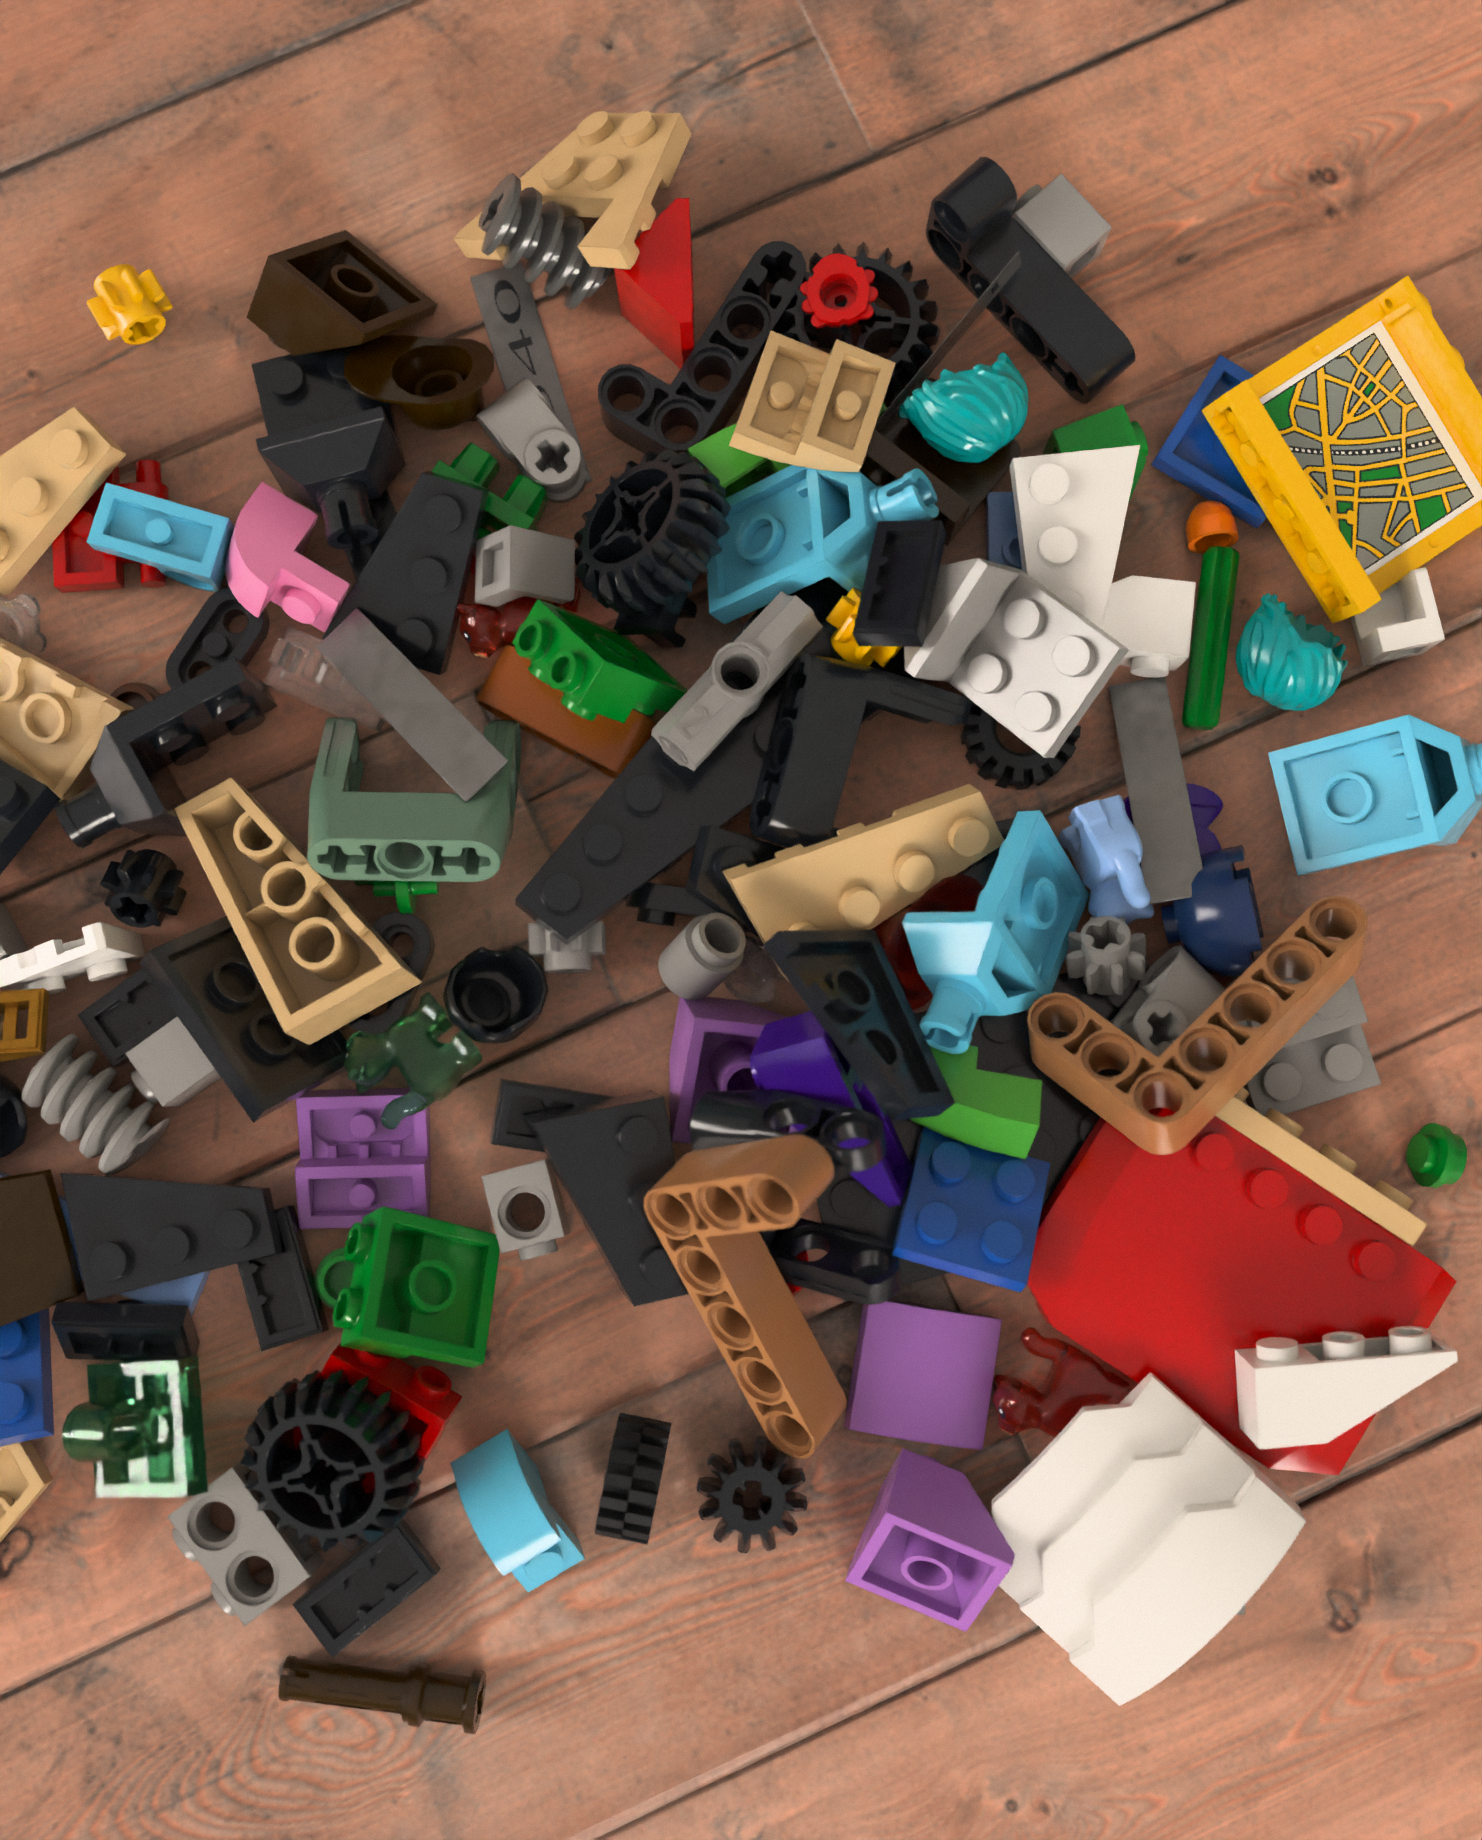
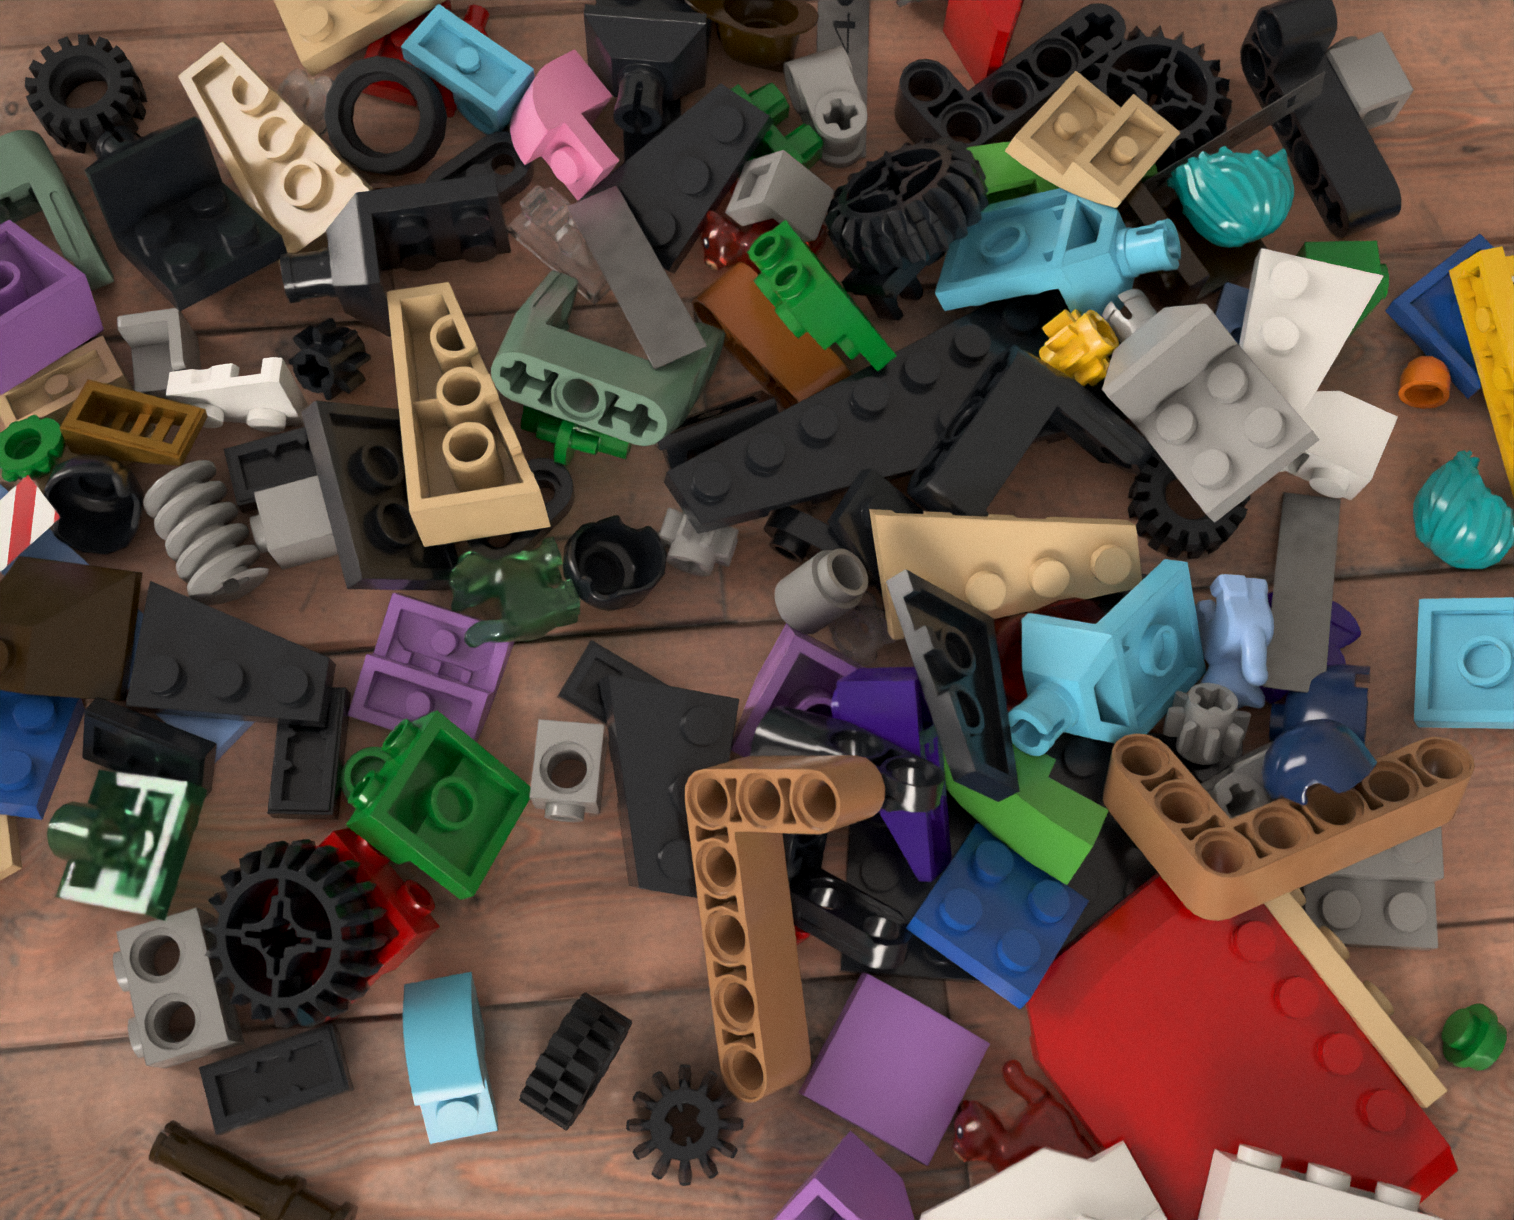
camera: 15 degrees right, 10 degrees down
(62, 645) = (340, 112): none -> black tyre
(548, 816) = (716, 424): none -> black plate
(712, 707) = (913, 364): light grey piece -> none
(838, 280) = (1148, 59): red animal -> none
(900, 583) = (1123, 309): black plate -> none
(1210, 638) = (1394, 480): green axle -> none
(1220, 967) = (1312, 754): none -> dark blue hair

